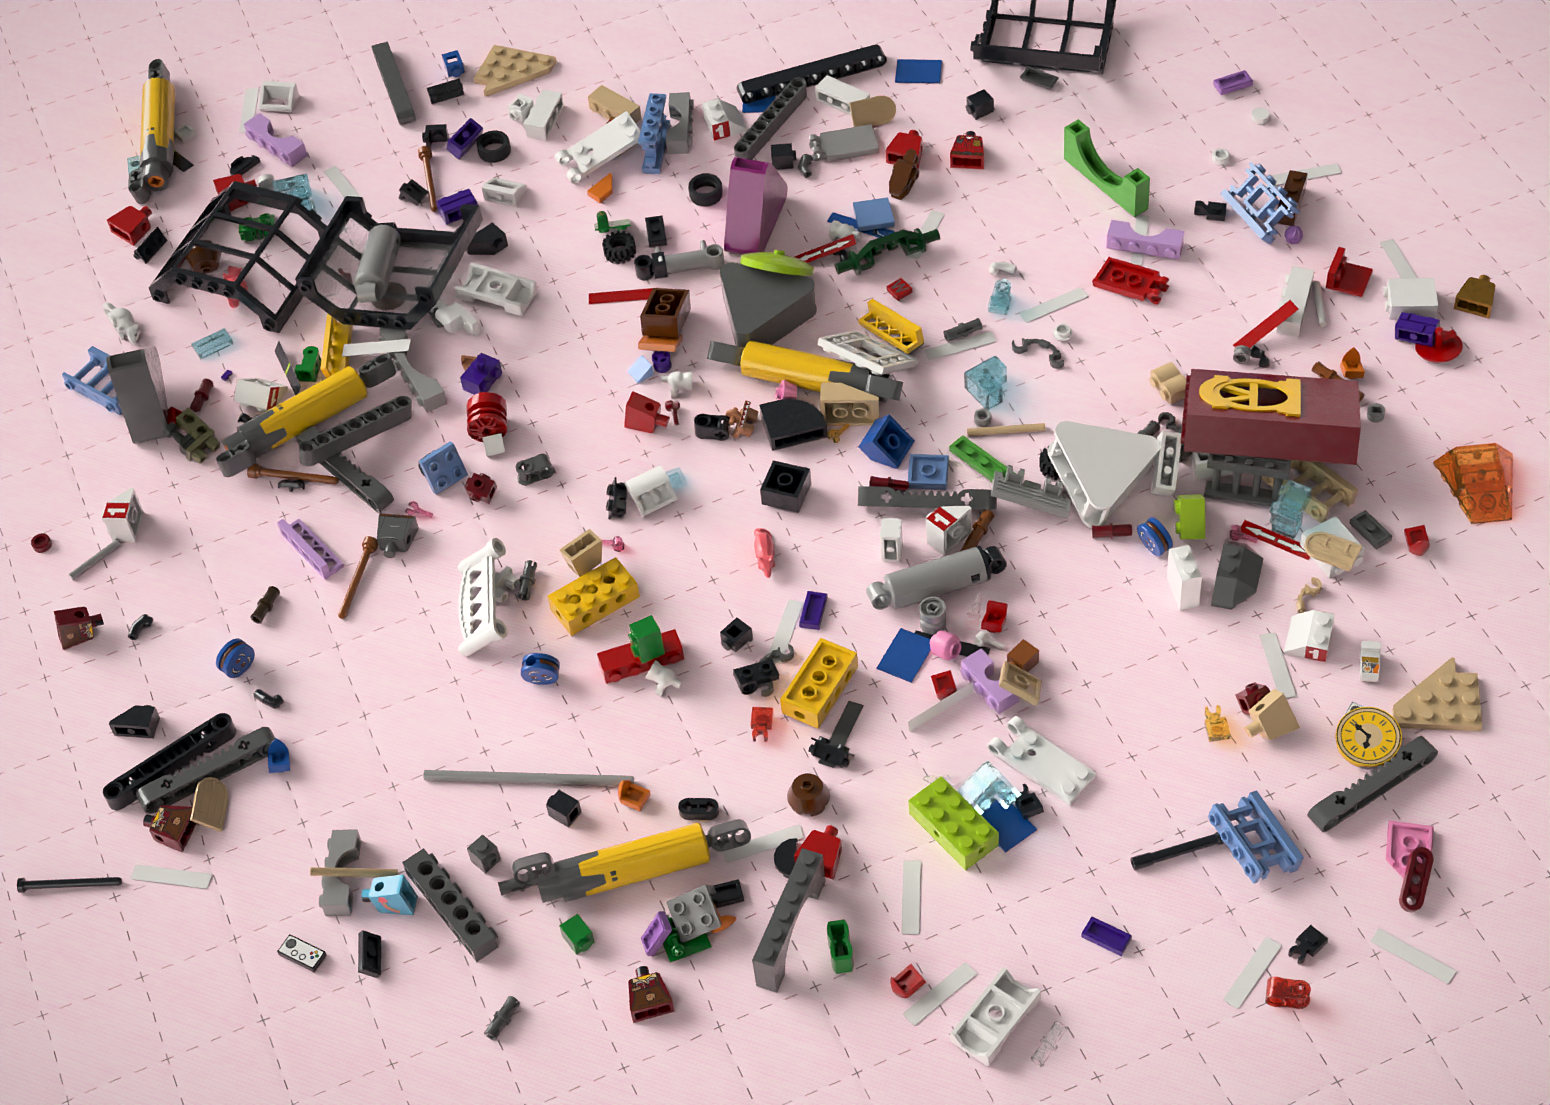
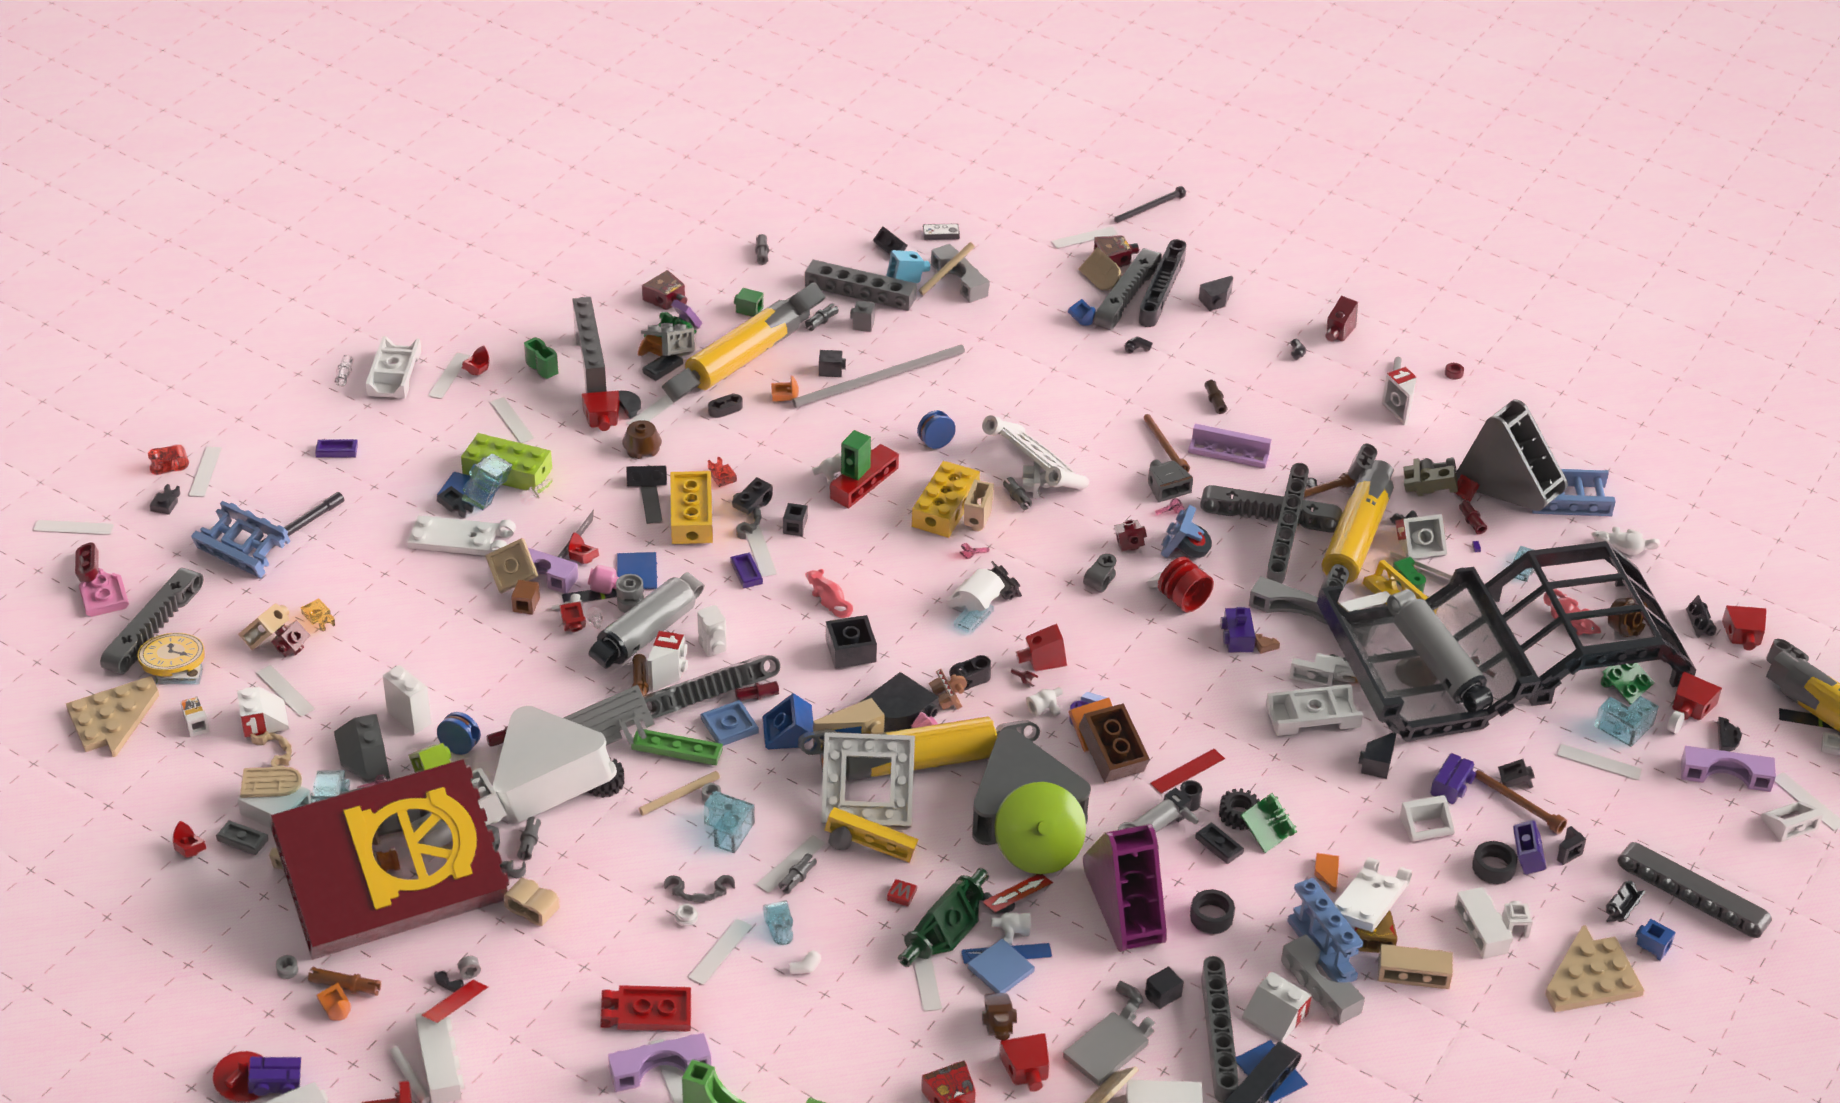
camera: 140 degrees right, 10 degrees down
(235, 658) = (1189, 347): blue head -> none
(1480, 480) = (137, 930): clear orange wedge -> none

